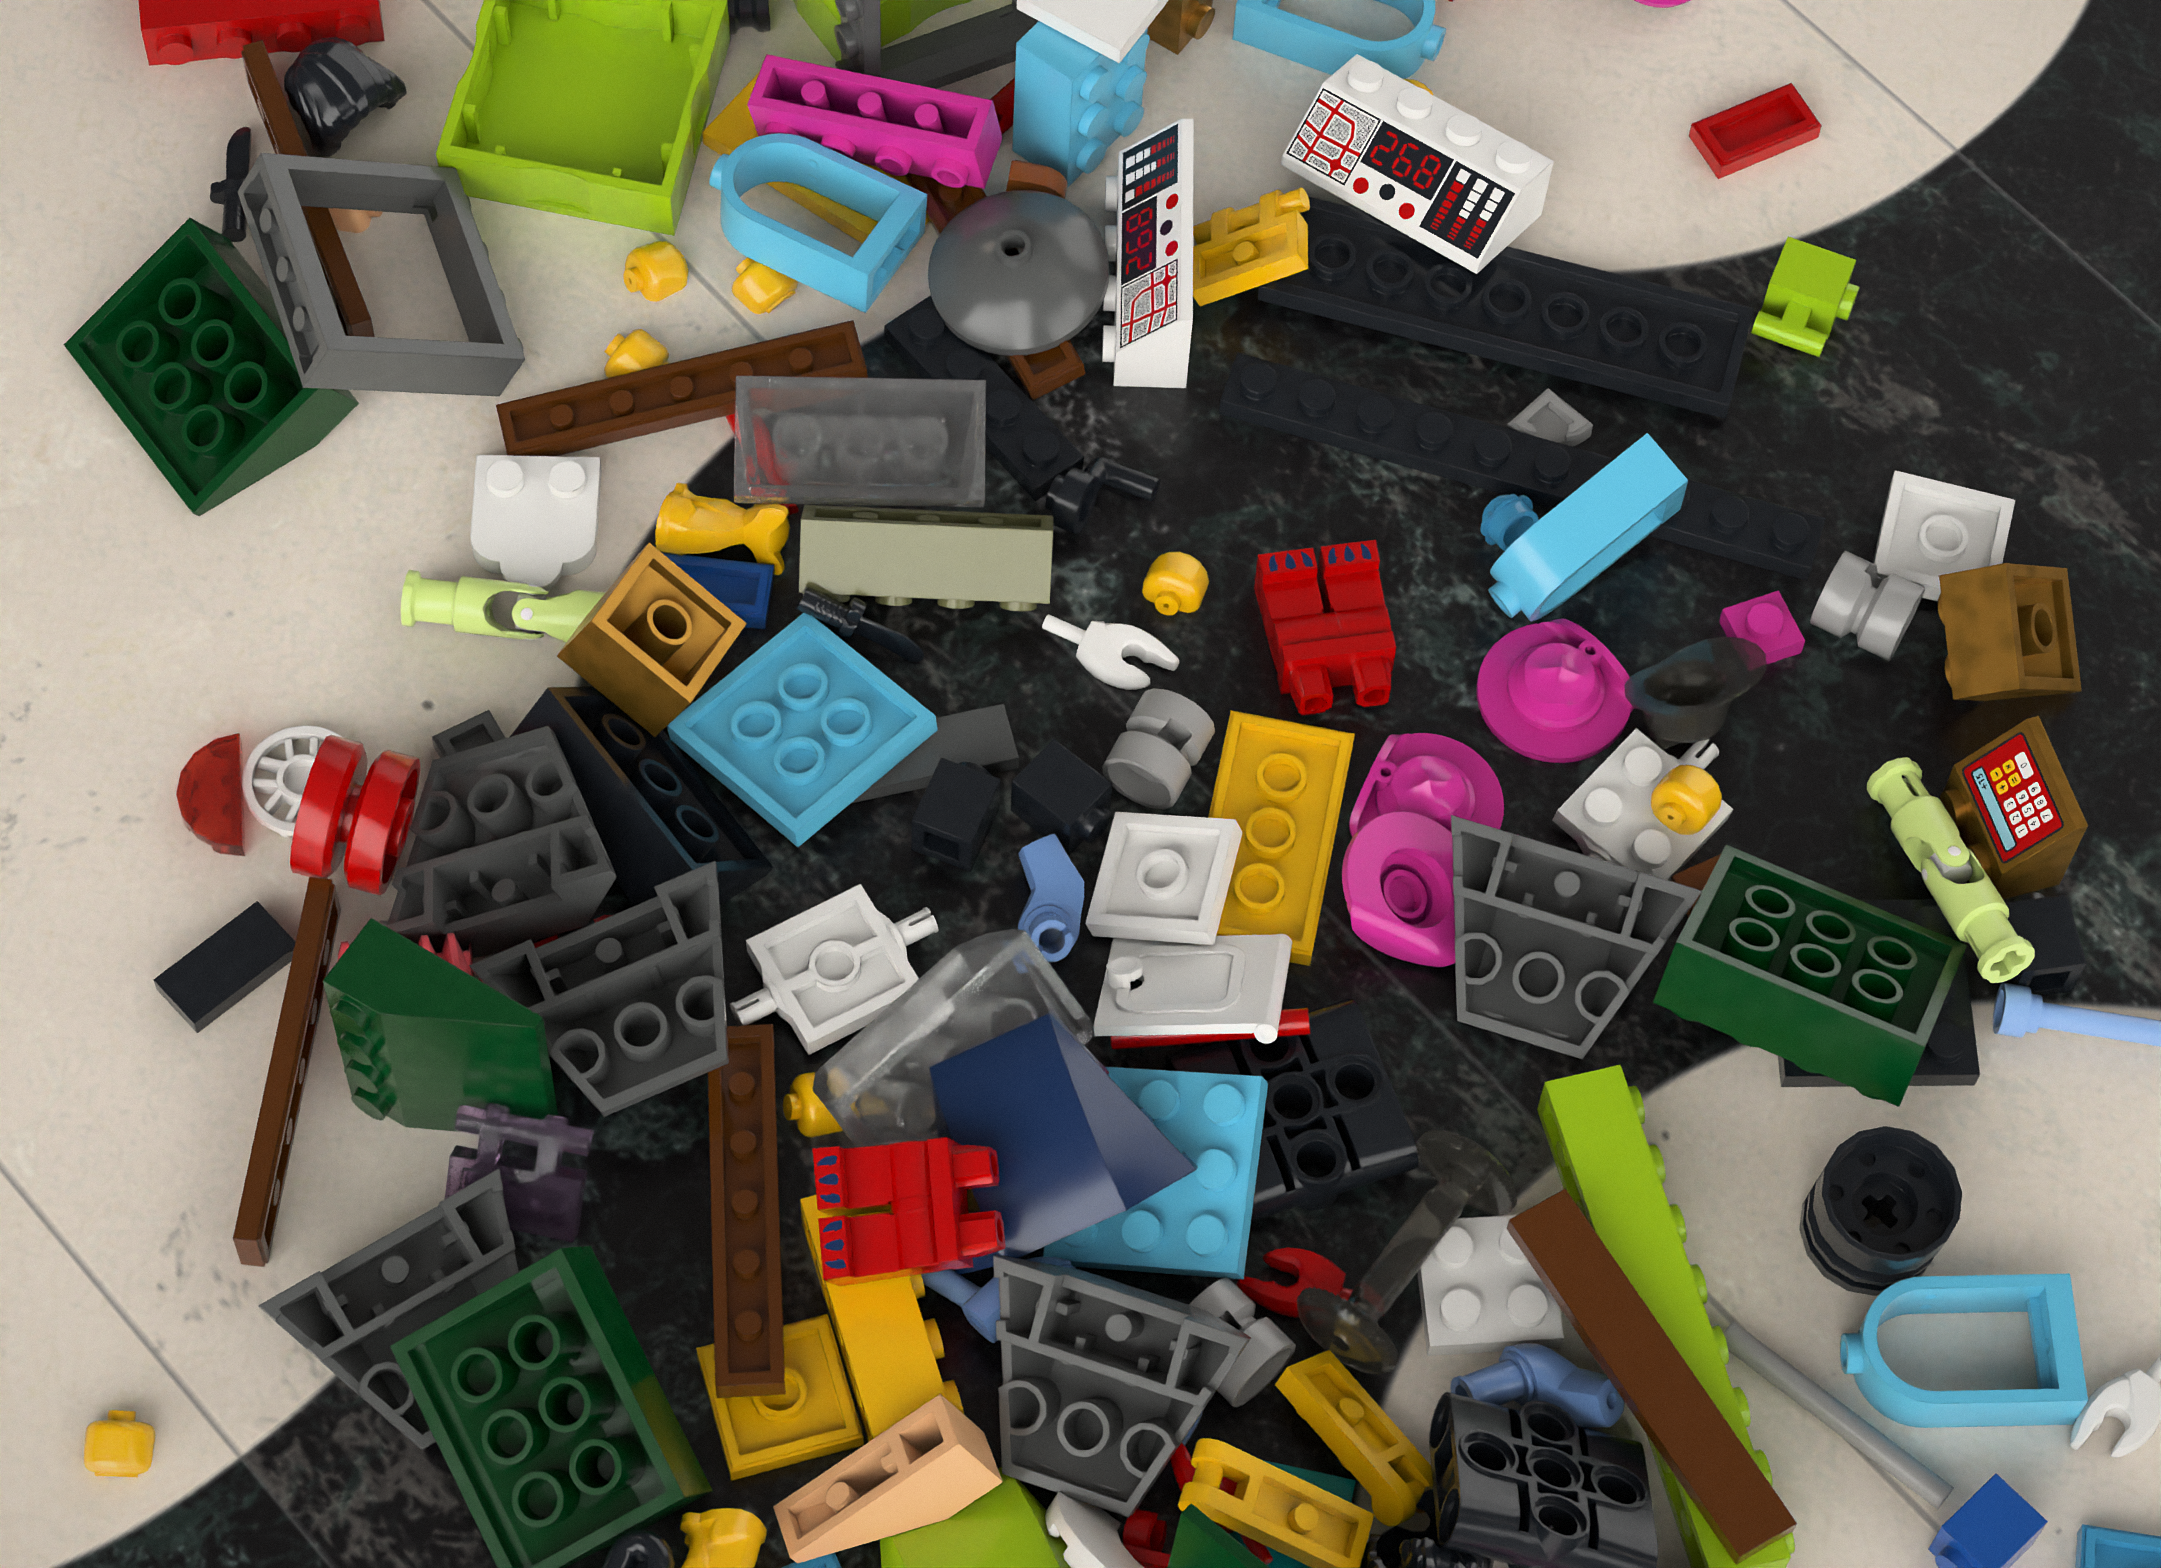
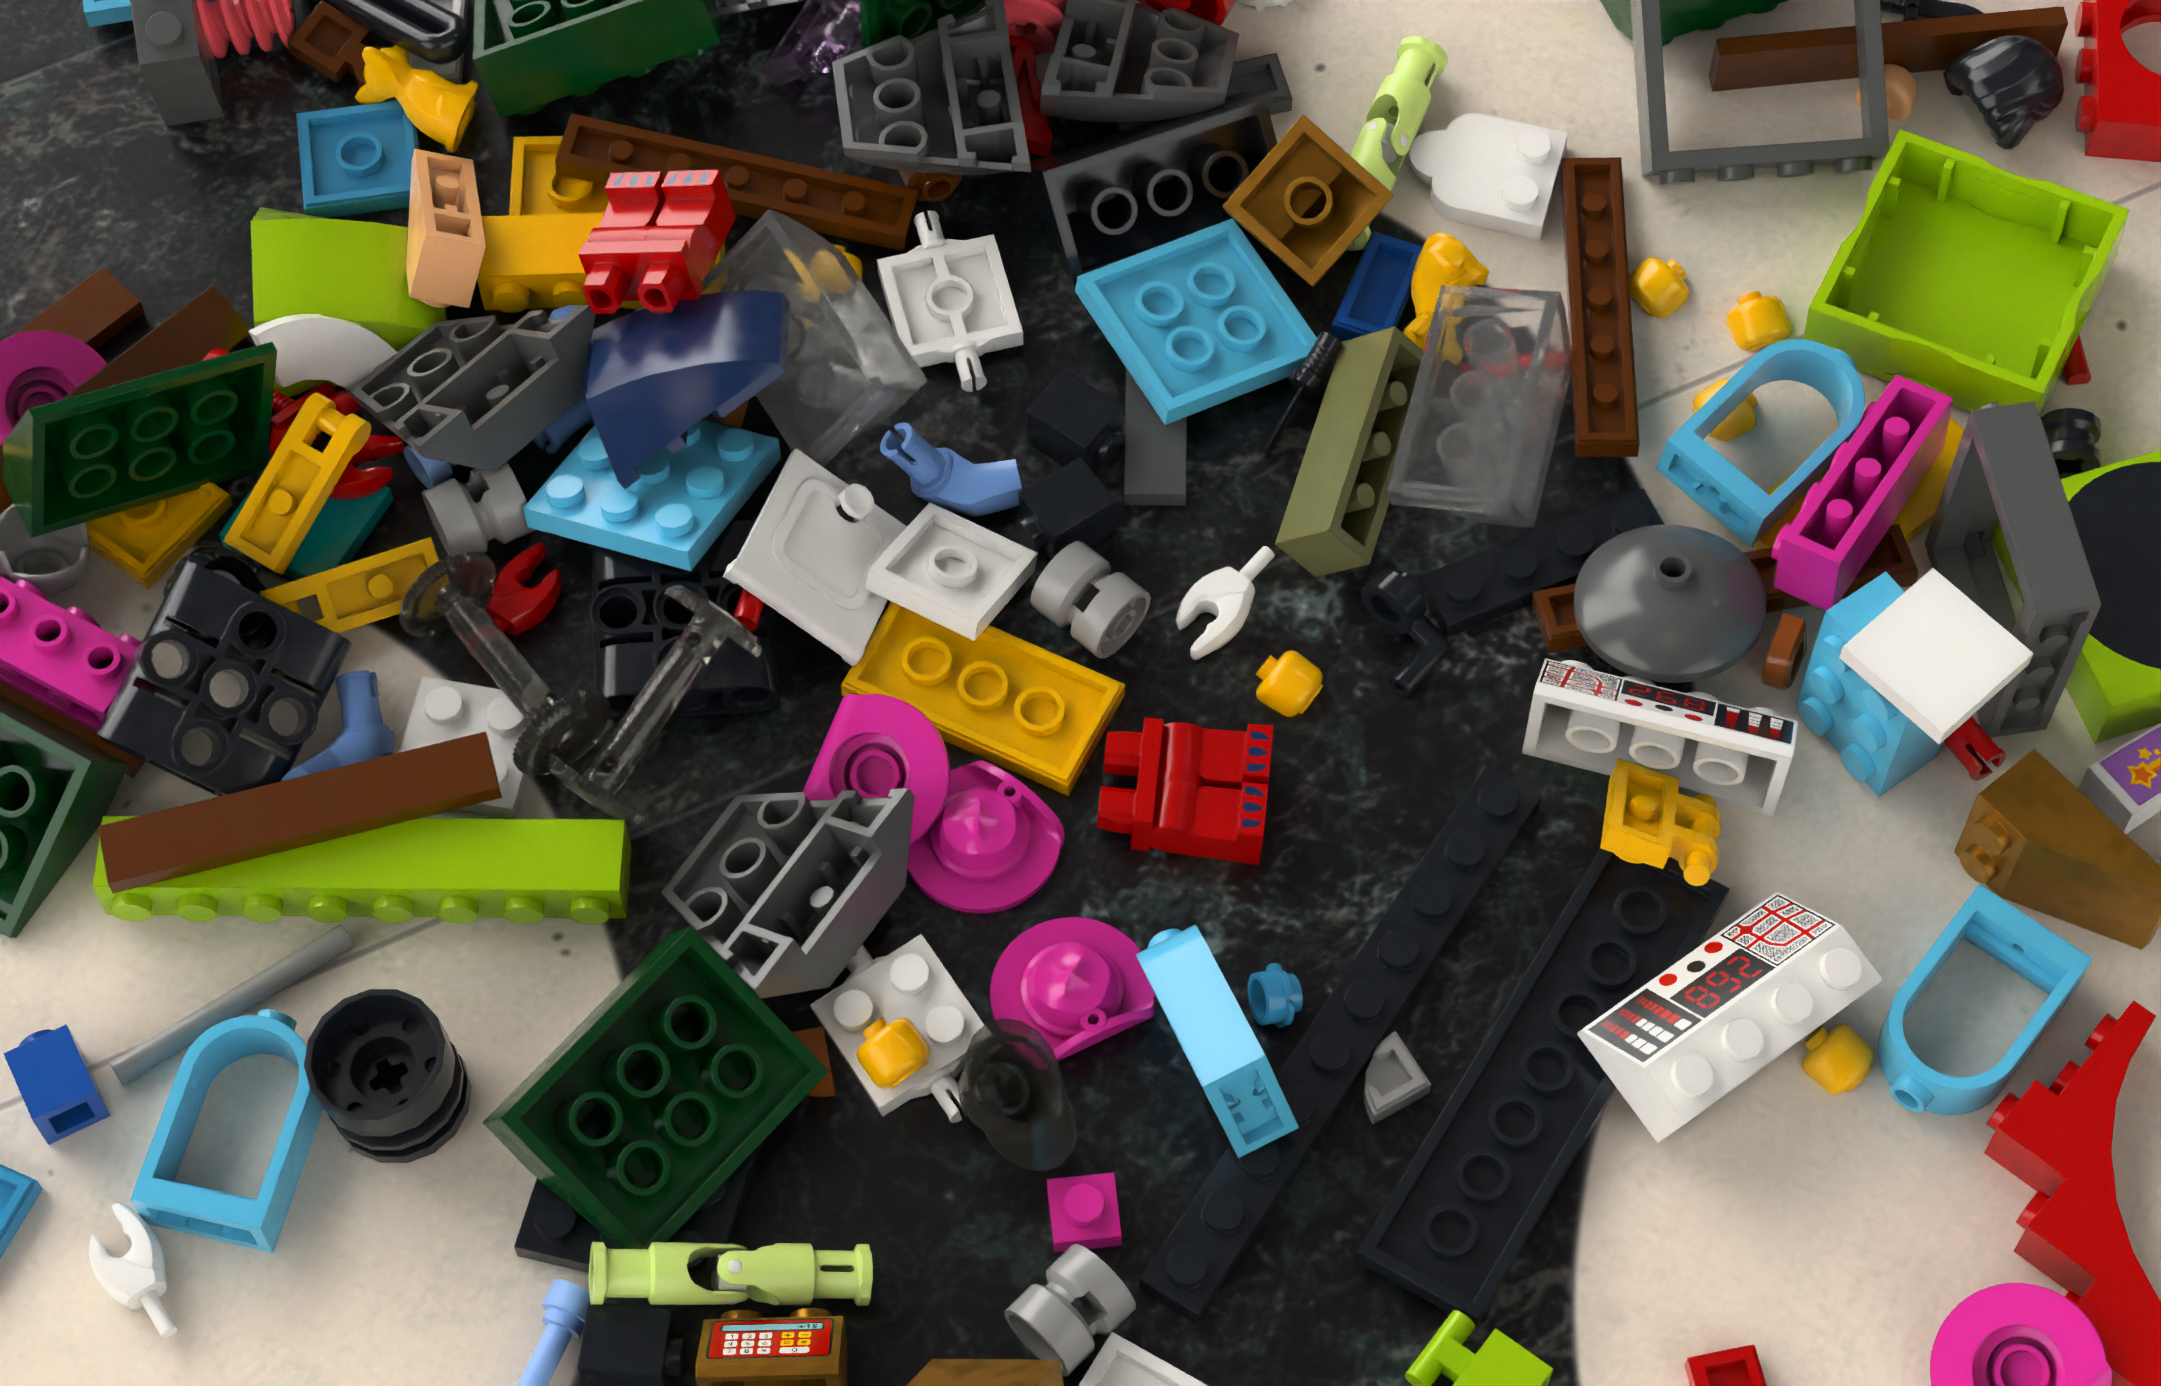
camera: 110 degrees right, 0 degrees up
(1332, 1033) = (654, 706): none -> clear smoke hose

